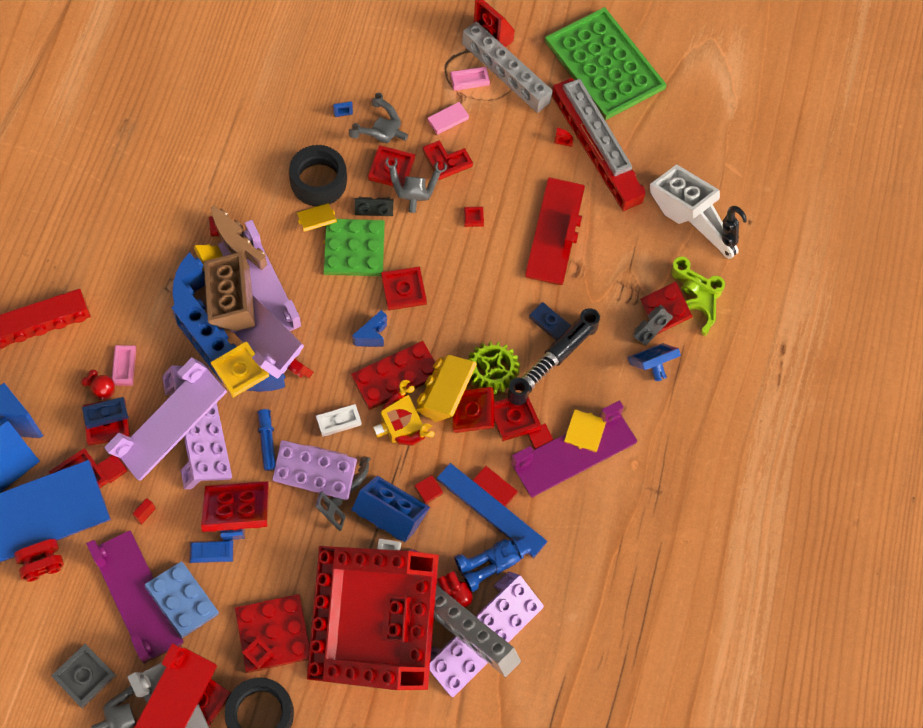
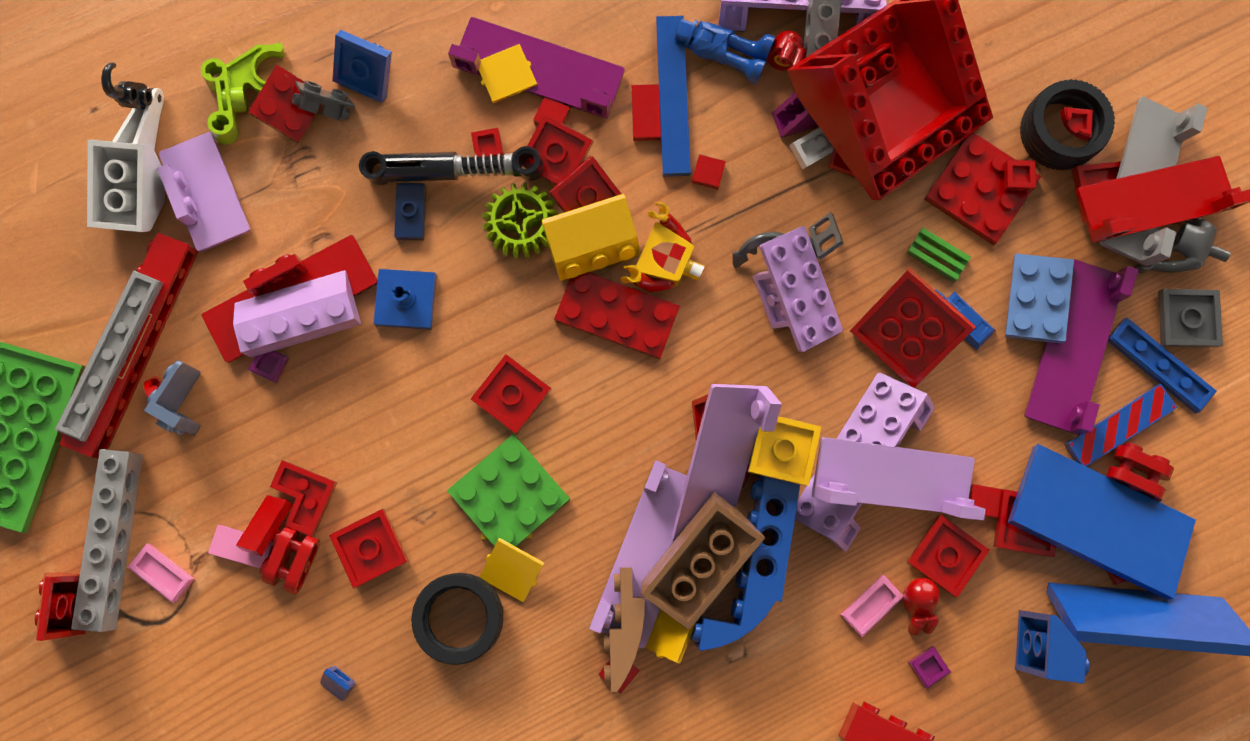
camera: 130 degrees left, 15 degrees up
(66, 365) = (929, 667): none -> magenta tile
(70, 579) = (1121, 425): none -> tile
(77, 635) = (1161, 365): none -> blue tile
(105, 412) = (947, 559): dark blue plate -> none
(143, 511) = (997, 420): red tile -> none
(253, 707) = (1078, 122): none -> red tile
(265, 430) = (809, 374): blue axle -> none
(276, 558) = (943, 245): none -> bright green tile
(338, 420) = (722, 322): white plate -> none
(369, 333) = (601, 381): blue slope -> none
(374, 207) = (446, 530): pearl dark grey hinge -> none
(383, 128) = (322, 604): dark grey piece -> none
(390, 508) = (764, 186): blue slope -> none
(414, 187) = (374, 491): dark grey piece -> none
(424, 122) = (275, 566): none -> red brick
(447, 131) = (264, 525): none -> red tile
(473, 217) = (350, 402): red tile -> none
(504, 282) = (405, 299): none -> blue tile
(530, 196) = (269, 365): none -> magenta tile
(542, 222) = (295, 314): none -> lavender slope
(545, 130) = (169, 396): none -> sand blue bracket
(553, 389) = (487, 142): none -> red tile
(653, 232) = (202, 192): none -> lavender bracket

